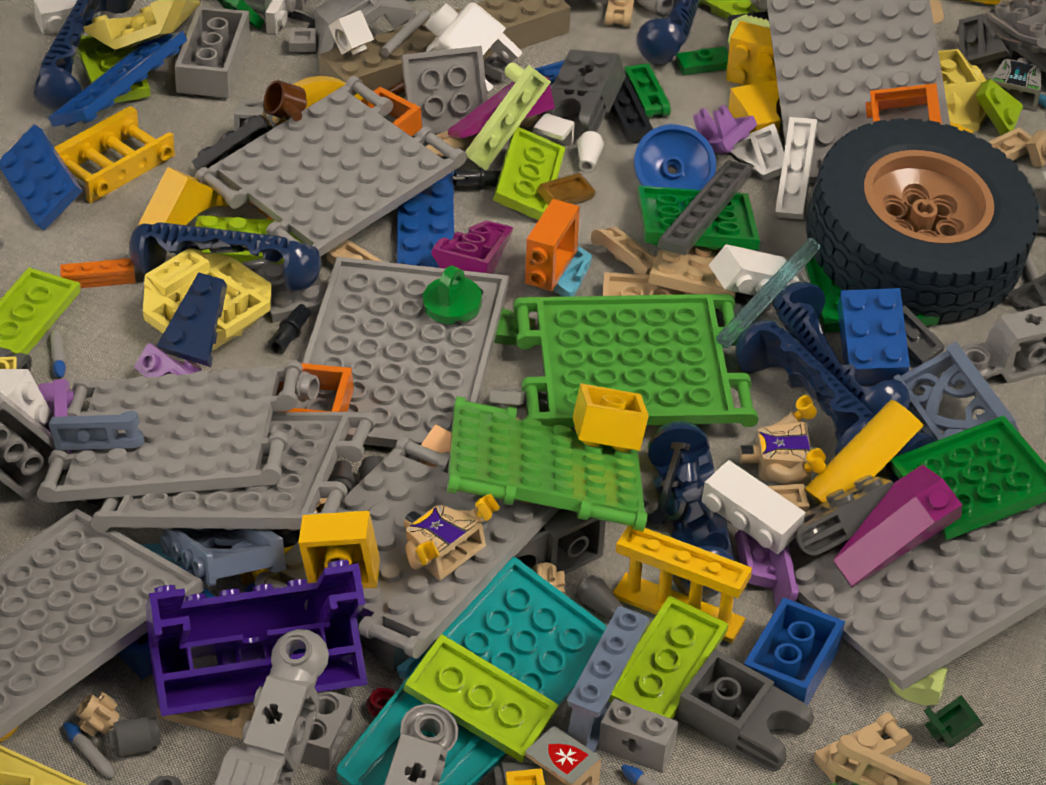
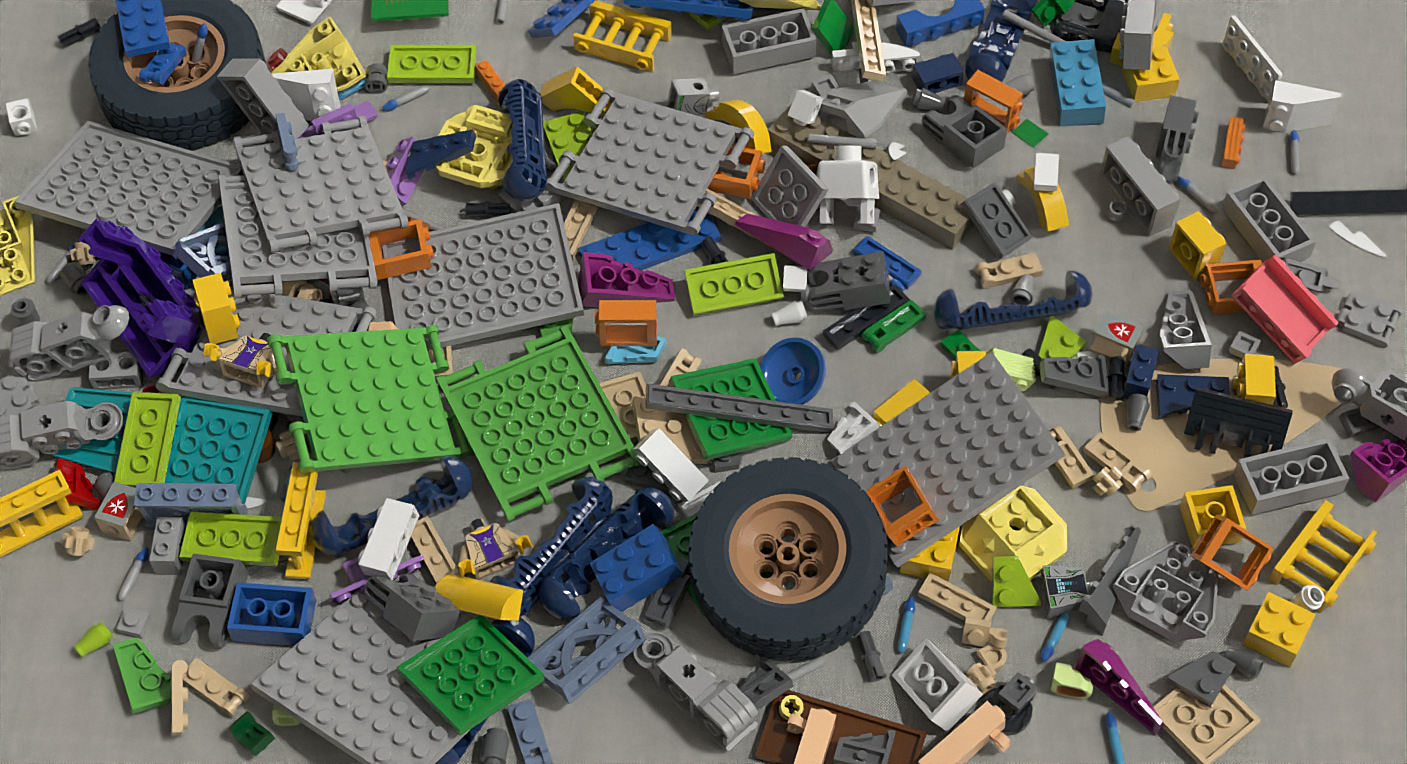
camera: 70 degrees right, 15 degrees up
(232, 141) = (654, 94): black plate -> none
(284, 100) = (703, 104): reddish brown piece -> none
(306, 386) = (389, 235): light grey plate -> none
(452, 297) = (537, 285): green tile -> none
(507, 397) = (462, 357): light grey plate -> none
(508, 115) = (771, 240): yellowish green piece -> none
(567, 189) = (728, 315): pearl gold tile -> none
(610, 418) = (439, 420): yellow brick -> none
(660, 517) = (392, 490): black piece -> none
(725, 129) = (851, 390): medium lavender plate -> none
(768, 293) = (642, 479): clear light blue axle -> none
(796, 168) = (843, 449): white plate -> none
(903, 519) = (392, 634): magenta wedge -> none
(980, 41) = (1103, 542): dark grey wing -> none

